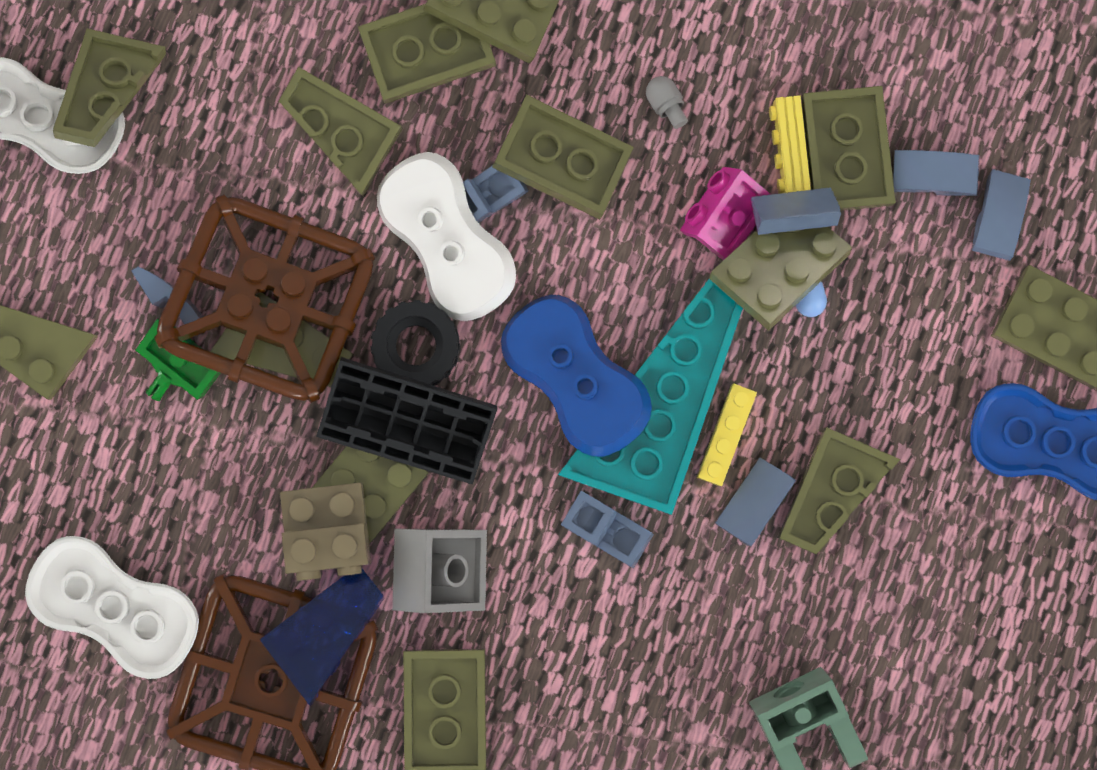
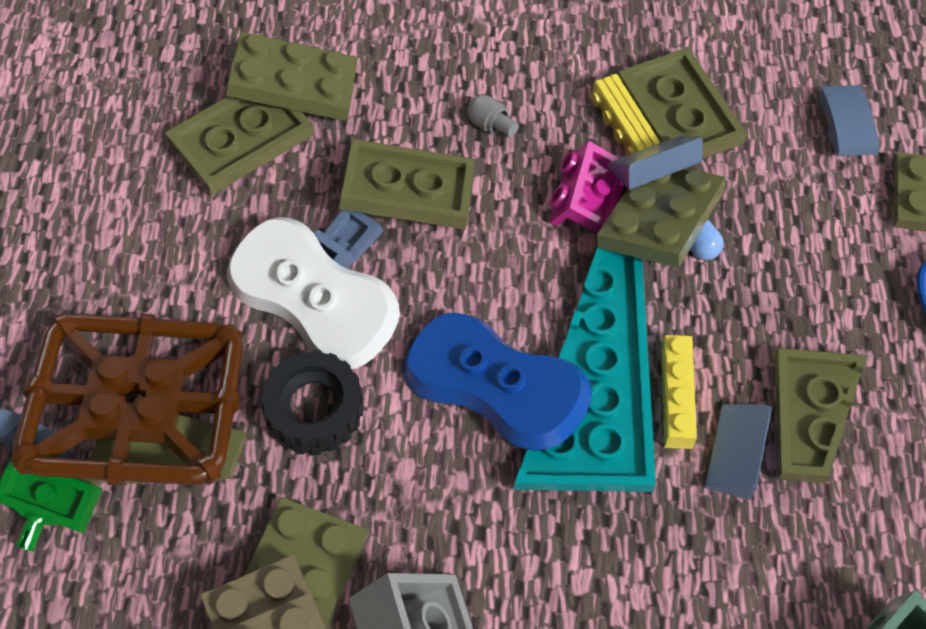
camera: 15 degrees left, 25 degrees down
(342, 127) = (172, 224): olive wing -> none
(406, 421) = (326, 470): black piece -> none
(607, 529) = (590, 530): sand blue slope -> none
(936, 172) = (771, 101): sand blue slope -> none

